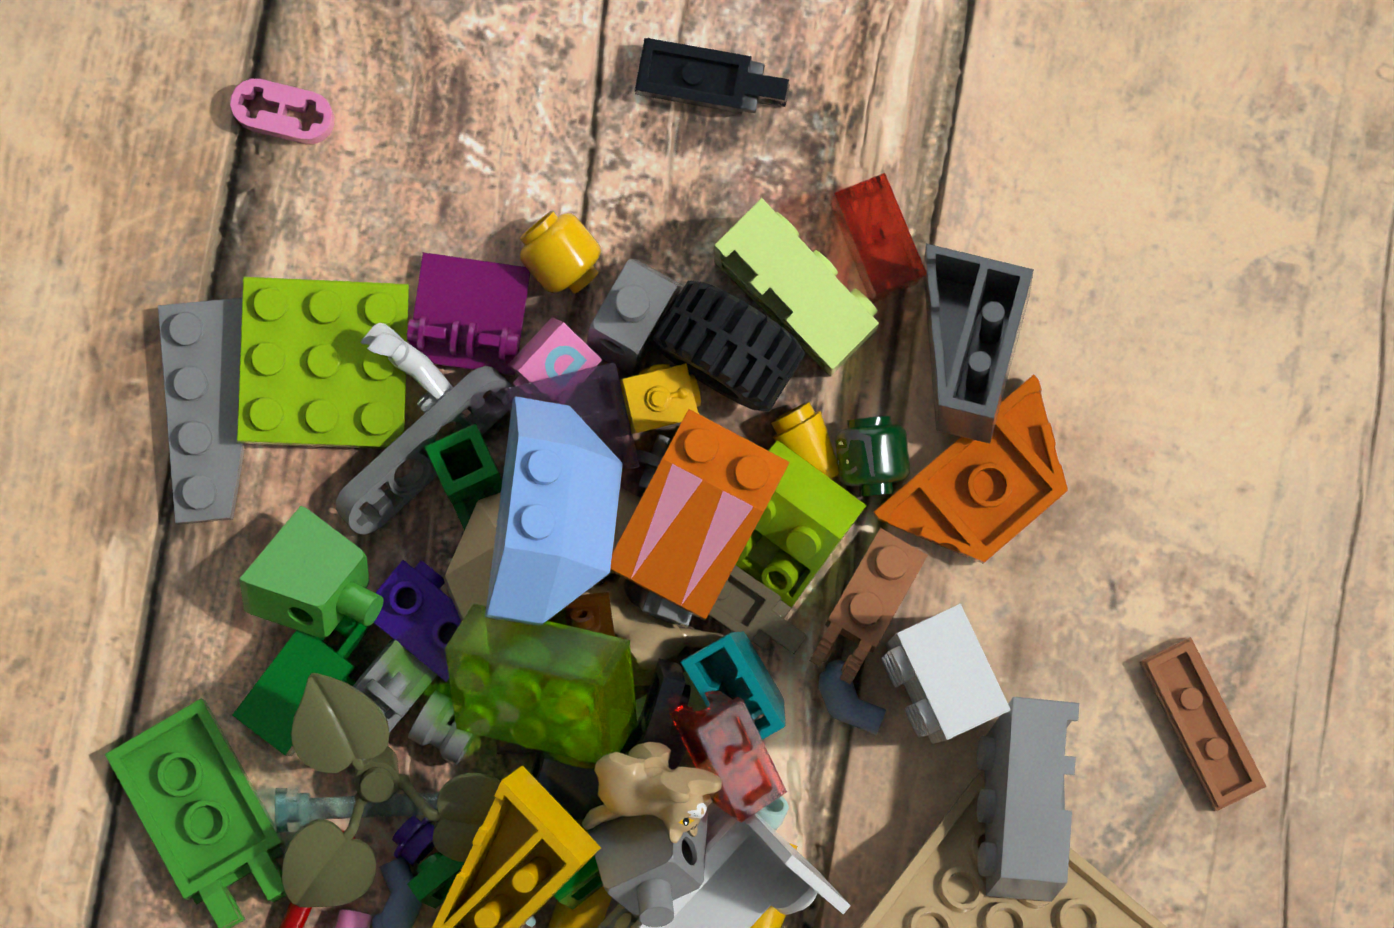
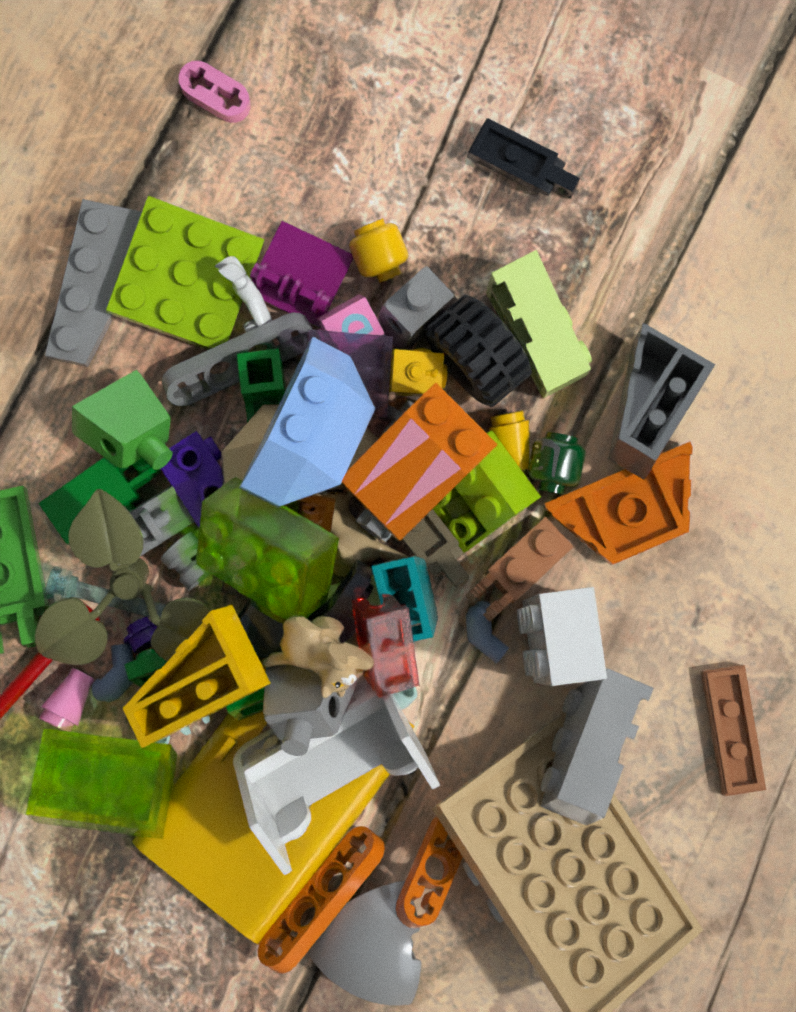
camera: 10 degrees right, 0 degrees up
(877, 237) = (608, 308): clear red hinge -> none

